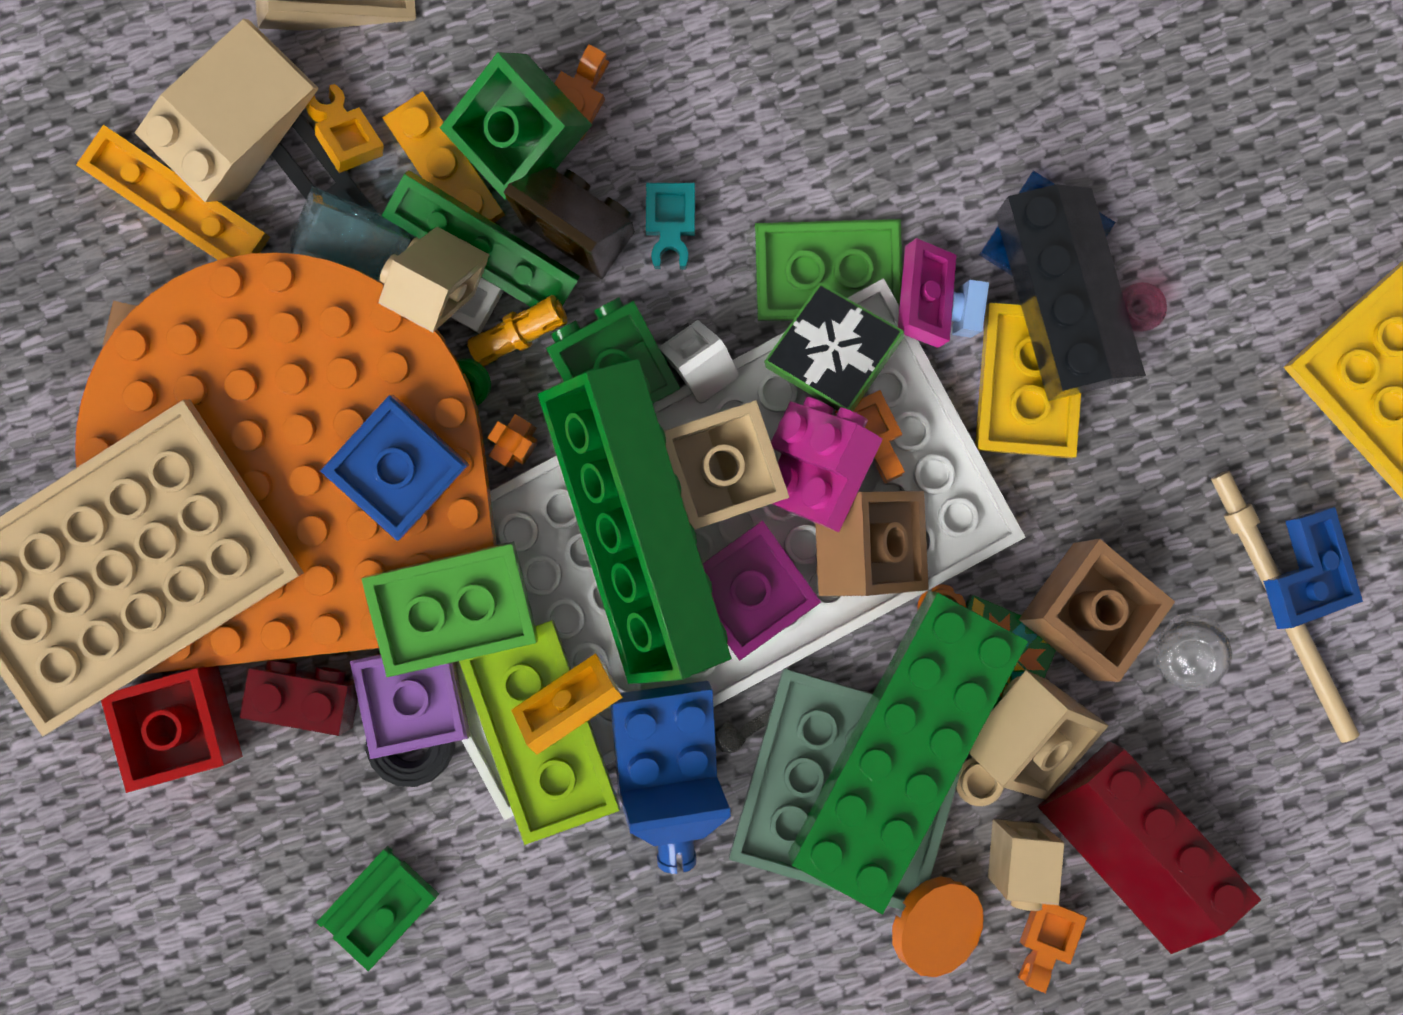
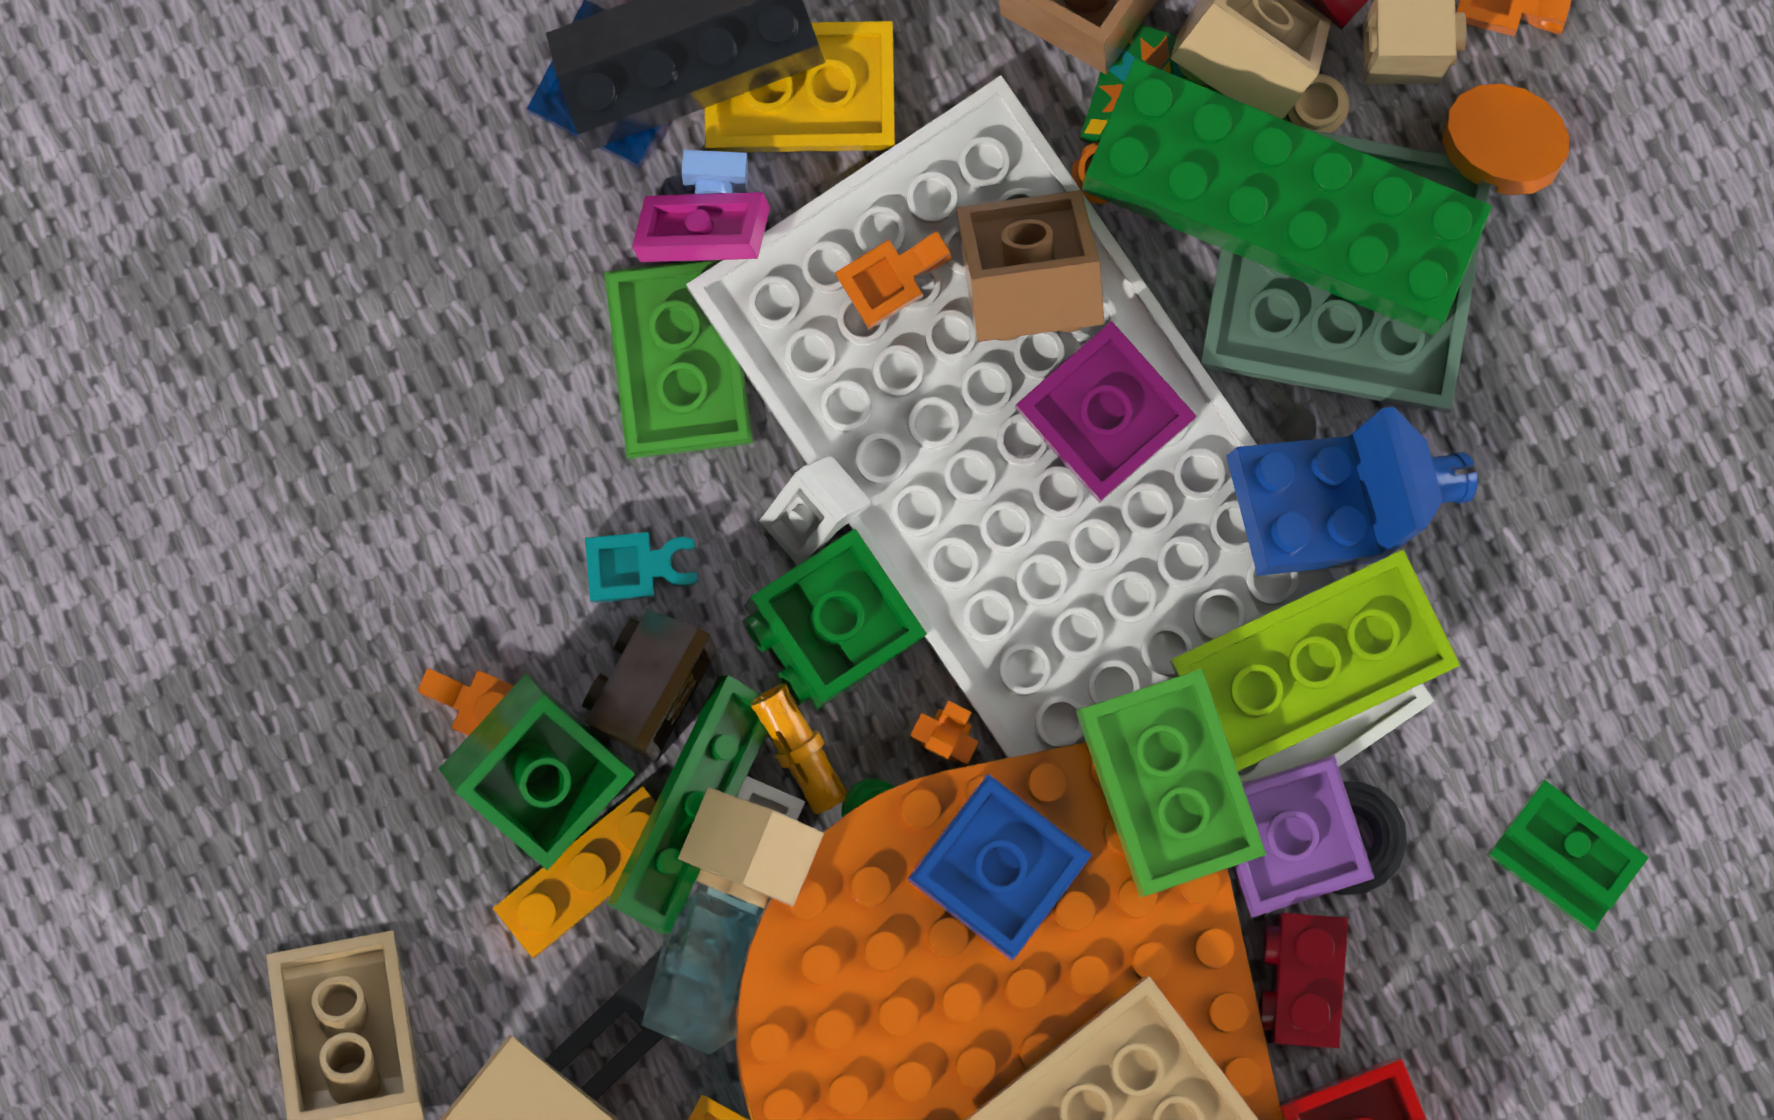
camera: 105 degrees left, 5 degrees down
(343, 134) = (560, 1005): light orange plate -> none
(566, 704) = (1274, 623): light orange plate -> none
(634, 524) = (1040, 559): green brick -> none
(725, 465) = (954, 460): tan slope -> none
(822, 460) = (936, 338): dark pink plate -> none
(834, 349) = (788, 335): tile -> none

